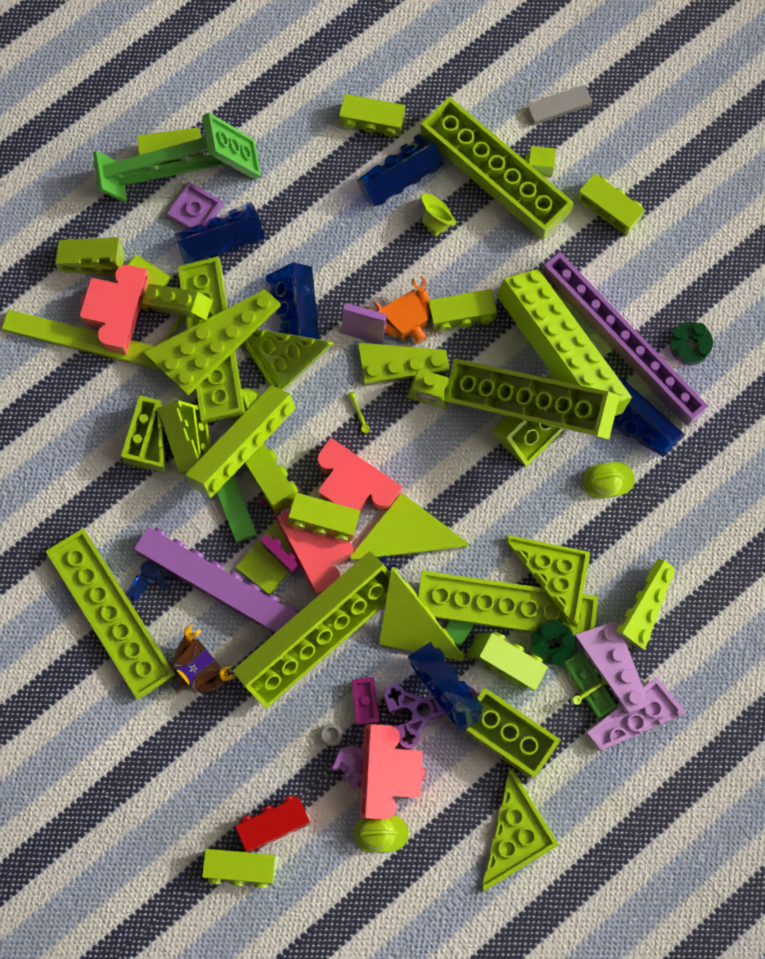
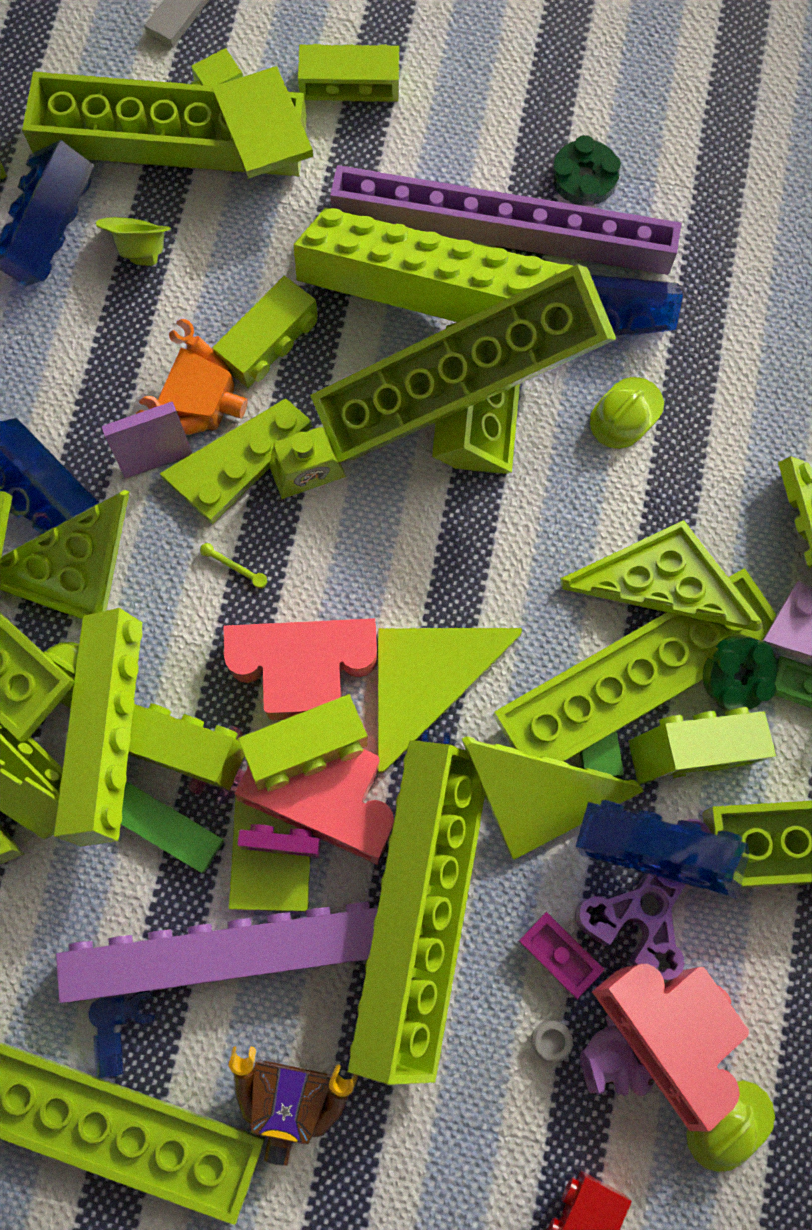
camera: 40 degrees left, 0 degrees up
(539, 203) = (262, 122): none -> lime tile

